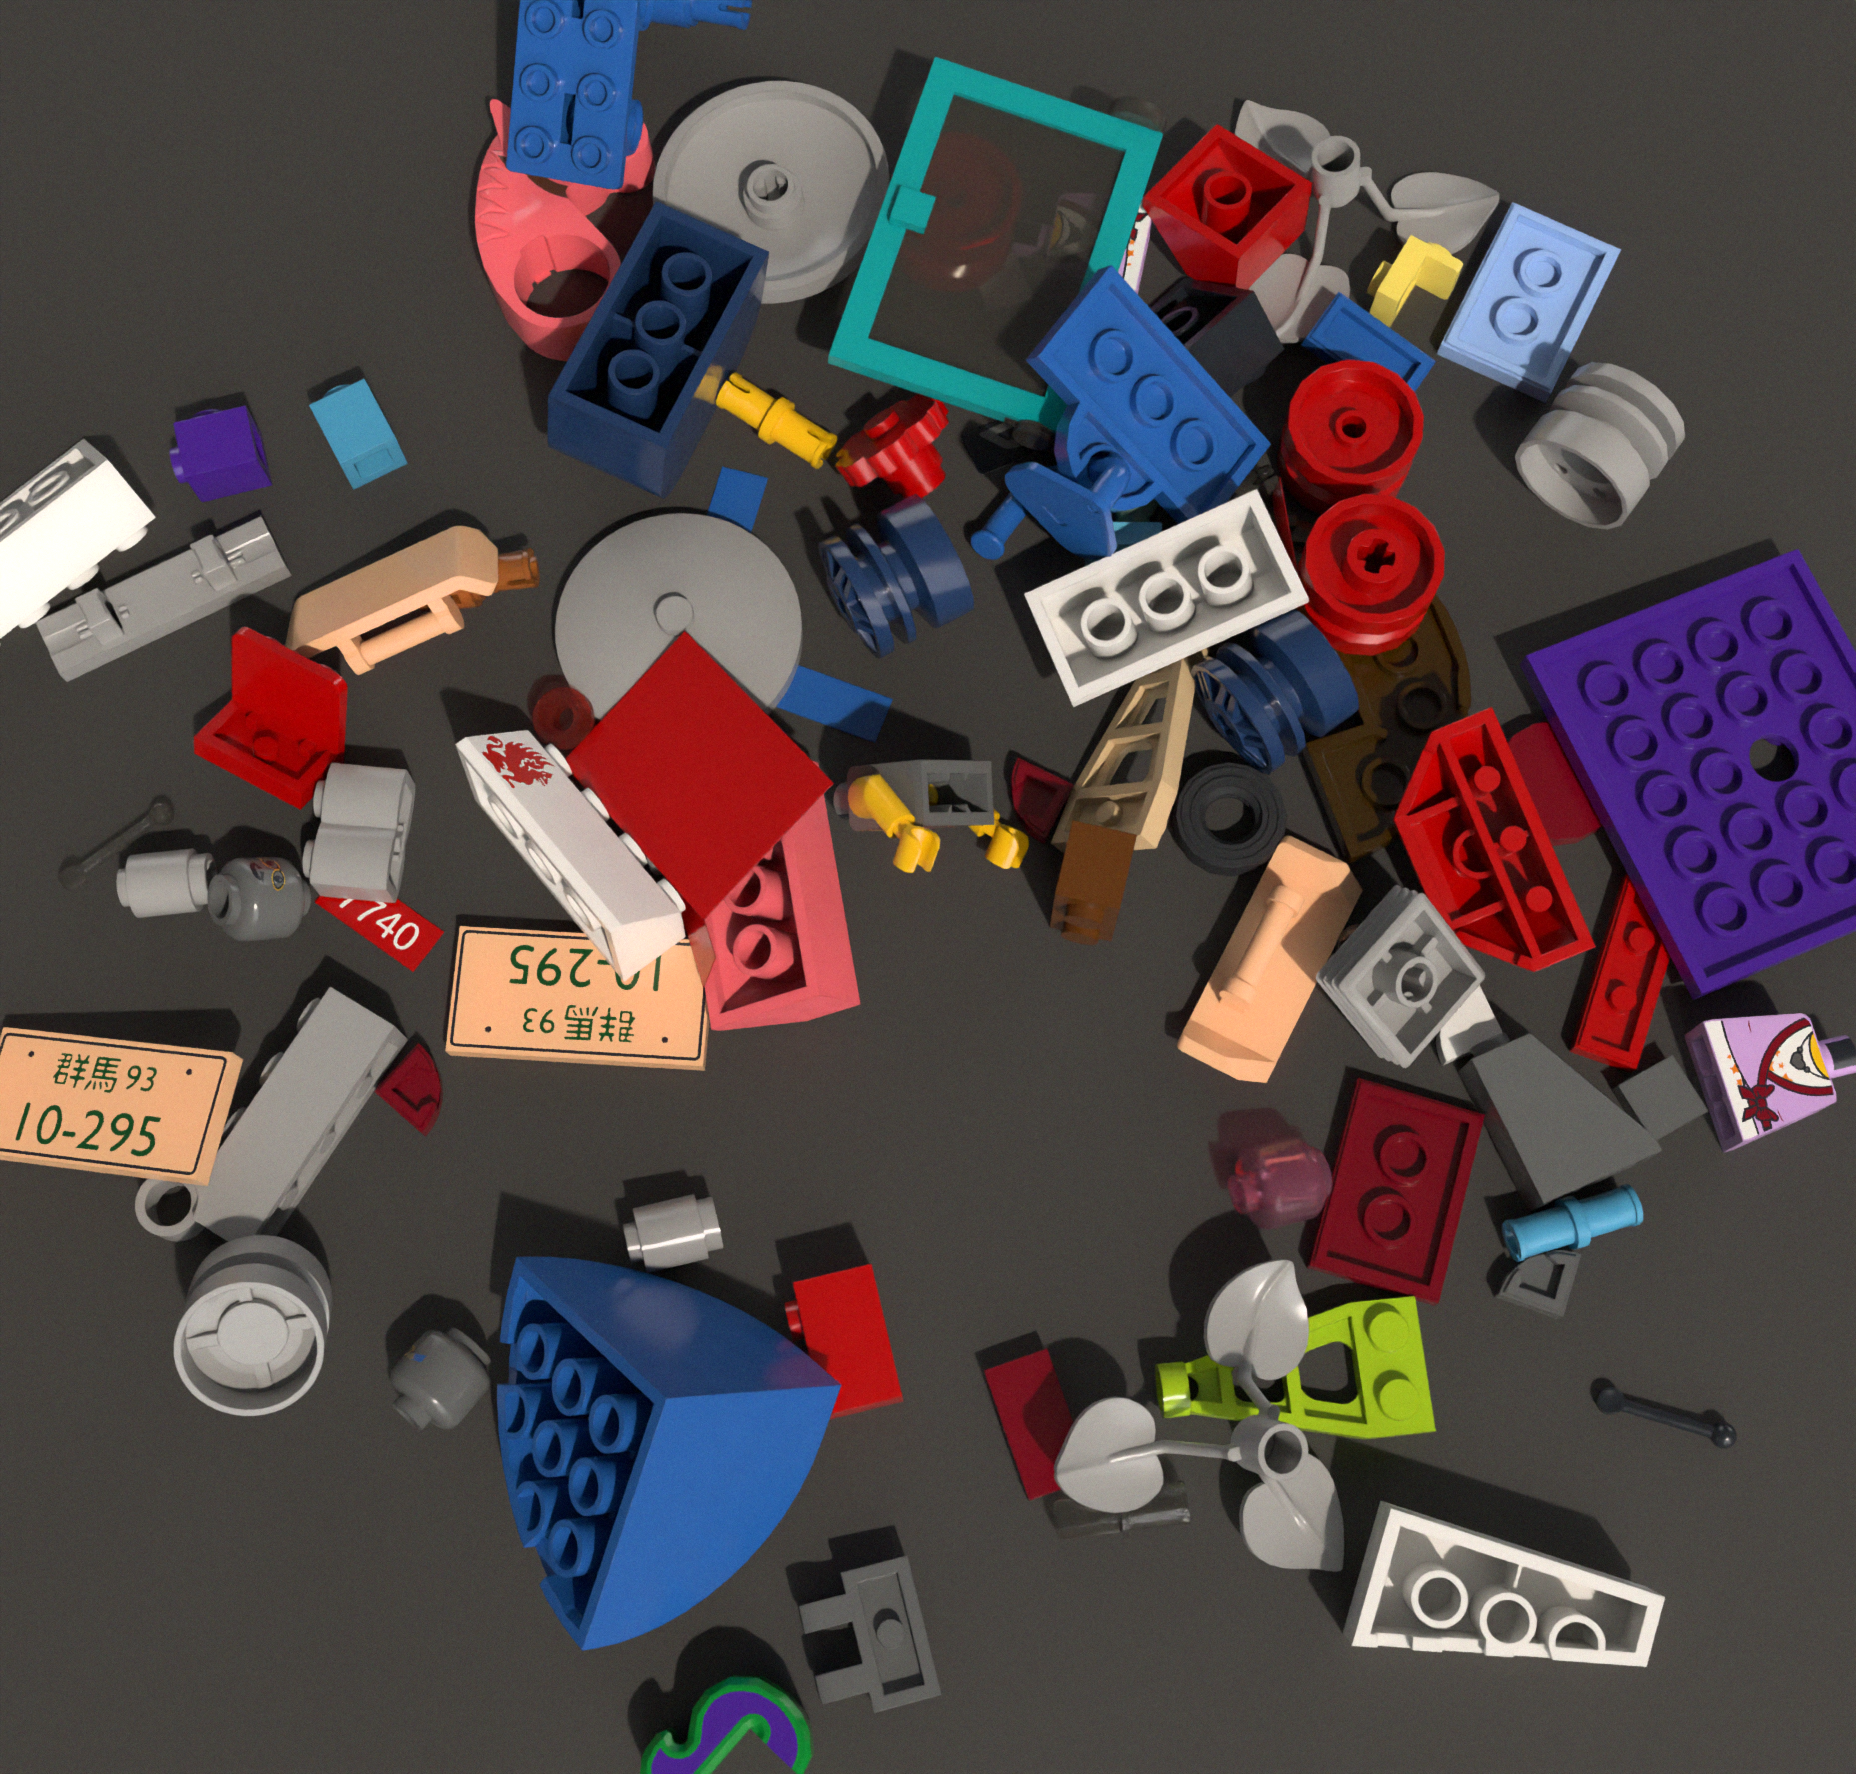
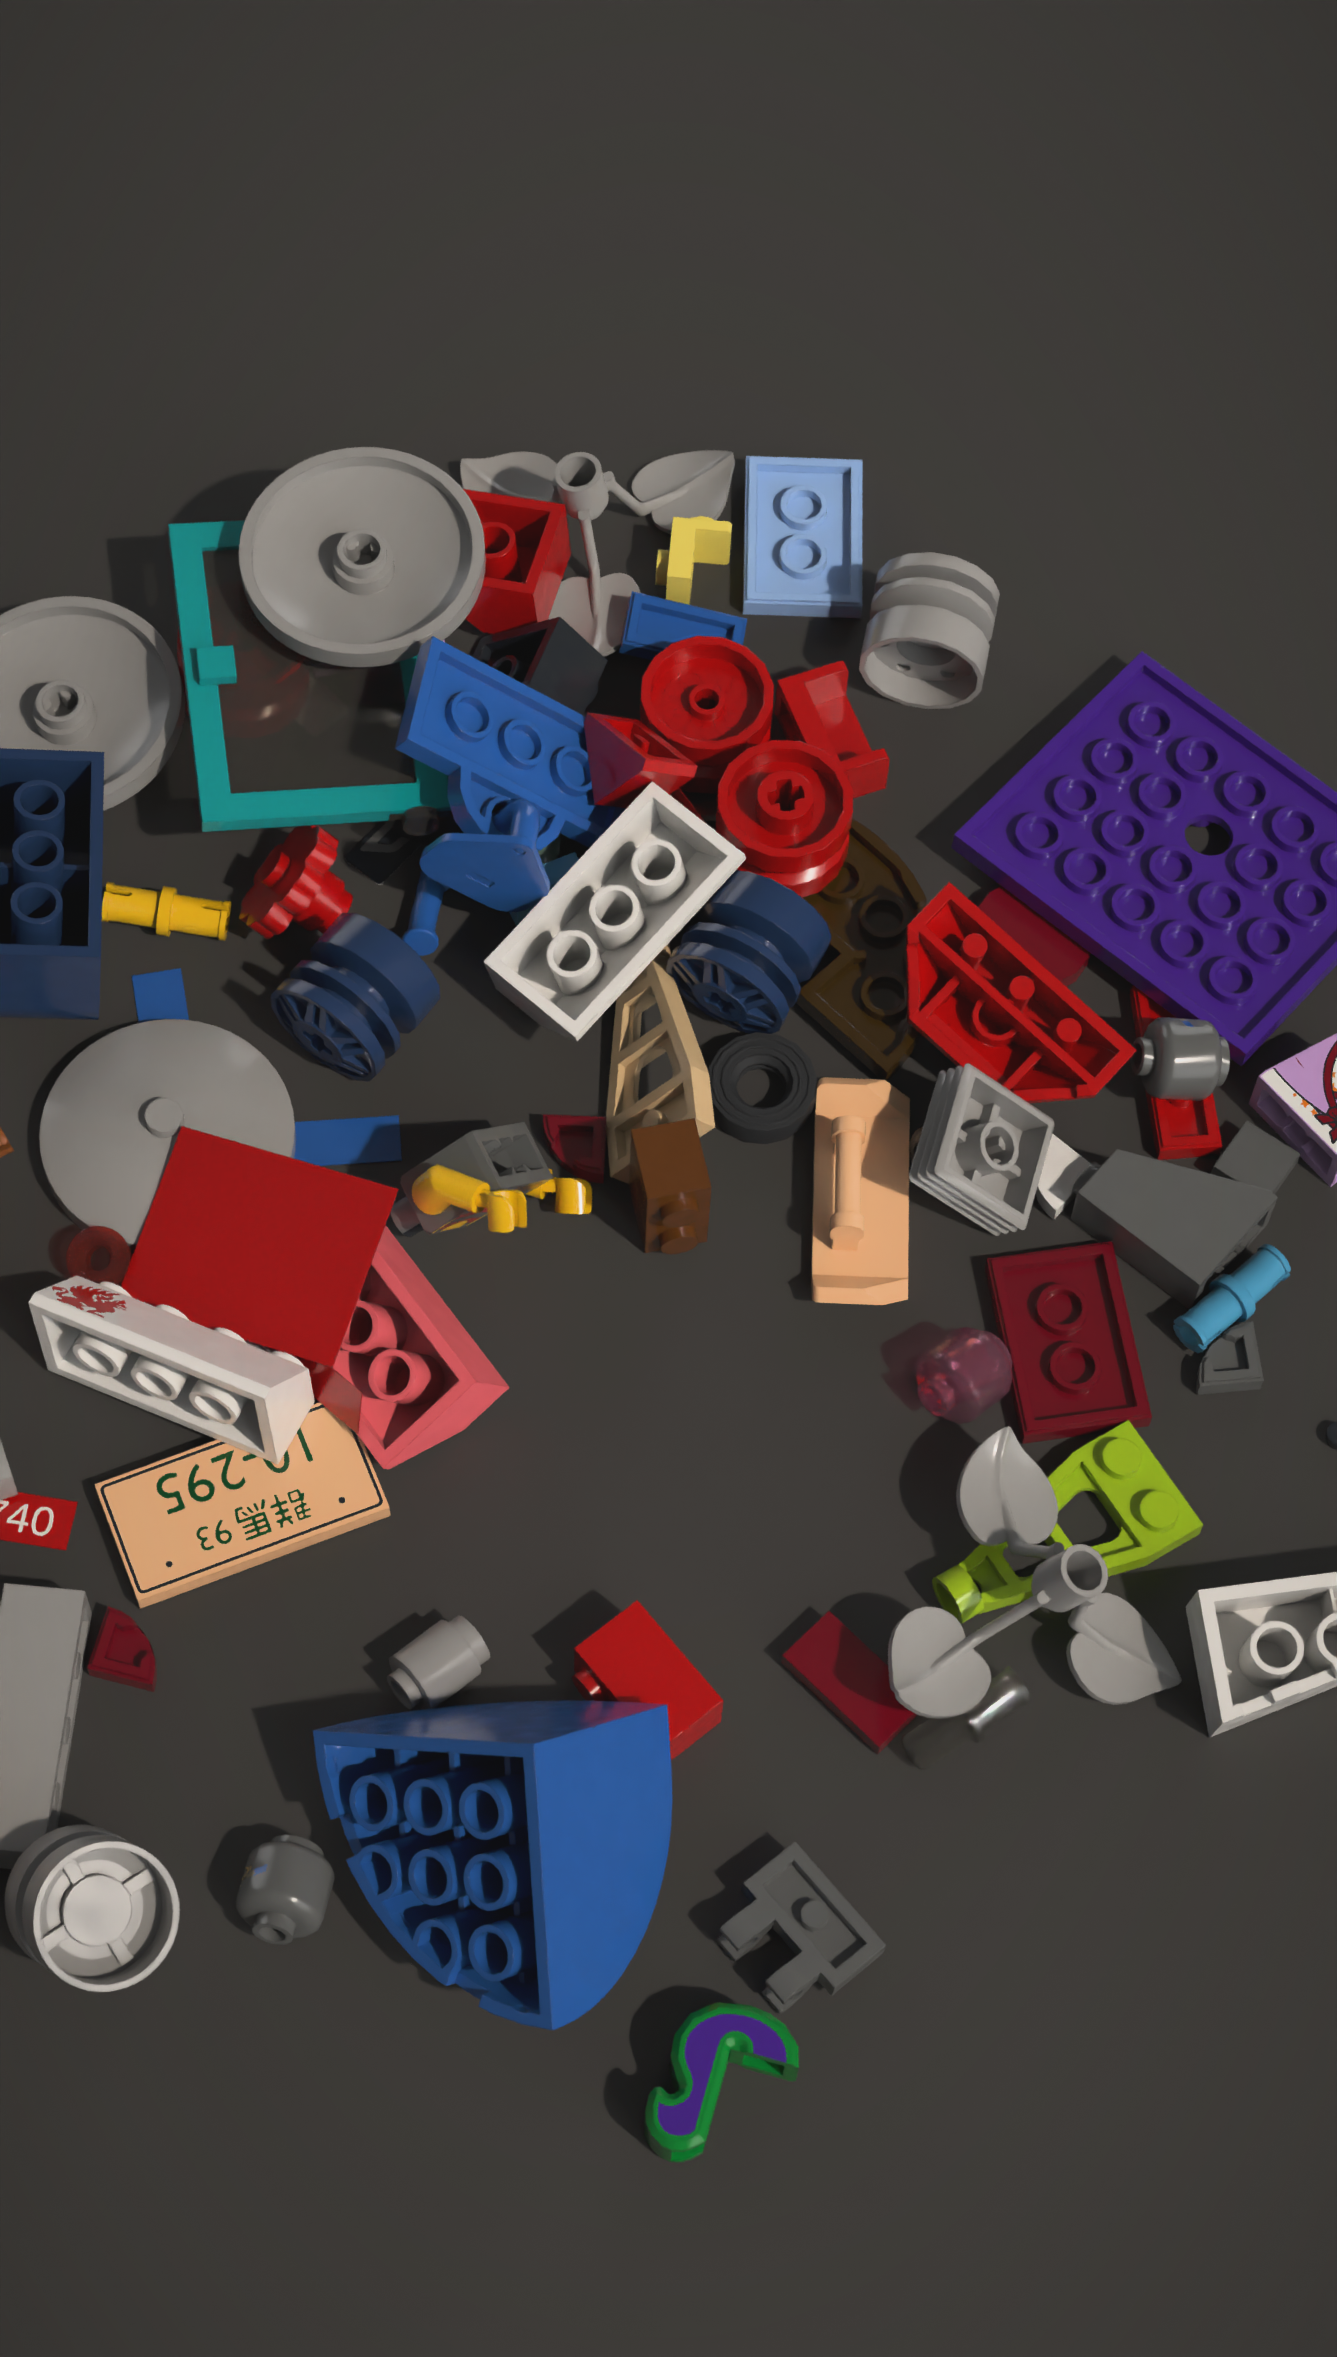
camera: 30 degrees left, 10 degrees down
(1092, 159) = (362, 556): none -> light grey dish
(1250, 455) = (628, 757): none -> red slope
(1459, 500) = (817, 712): none -> red panel
(1636, 971) = (1181, 1058): none -> dark grey head

